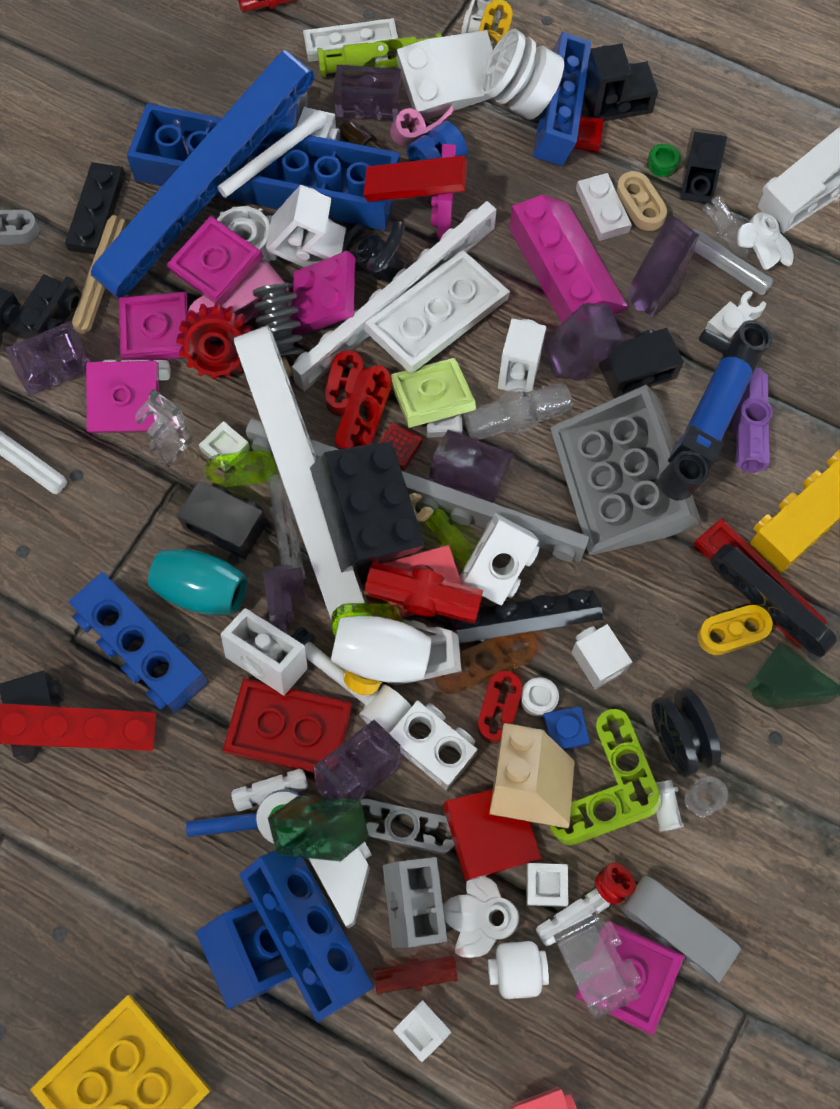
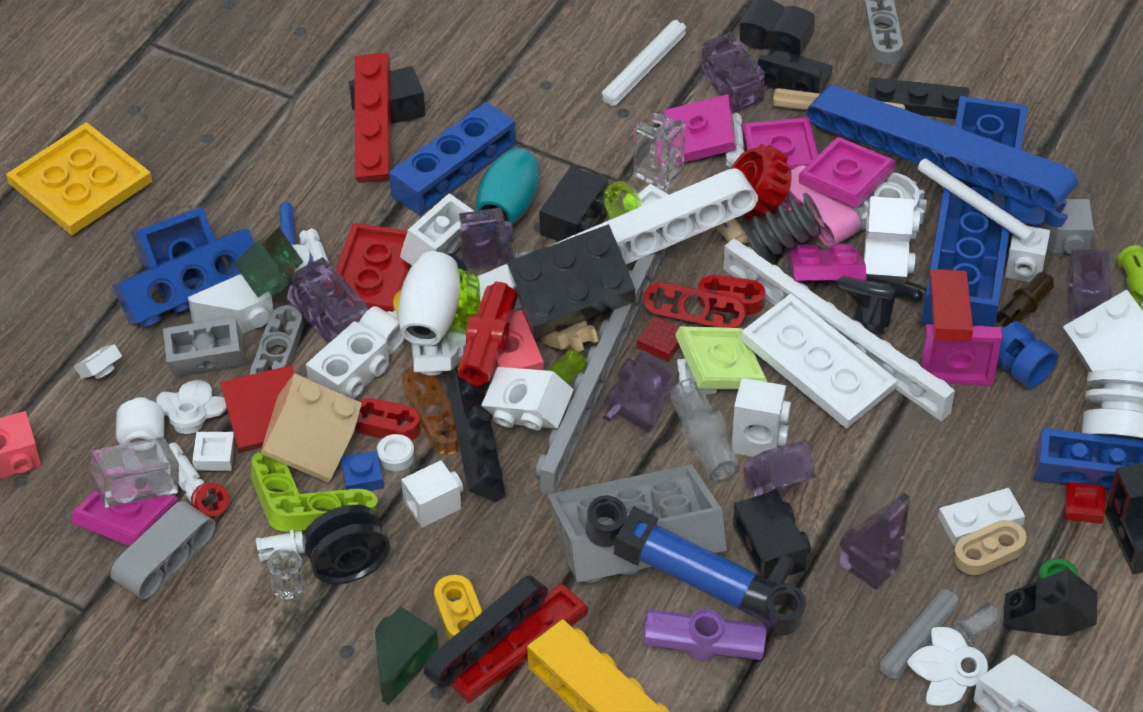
camera: 90 degrees right, 20 degrees down
(412, 118) = (1057, 338): bright pink panel -> none
(415, 974) = (145, 359): clear red pin -> none
(562, 256) = (918, 458): dark pink slope -> none
(731, 317) = (839, 635): white plate -> none

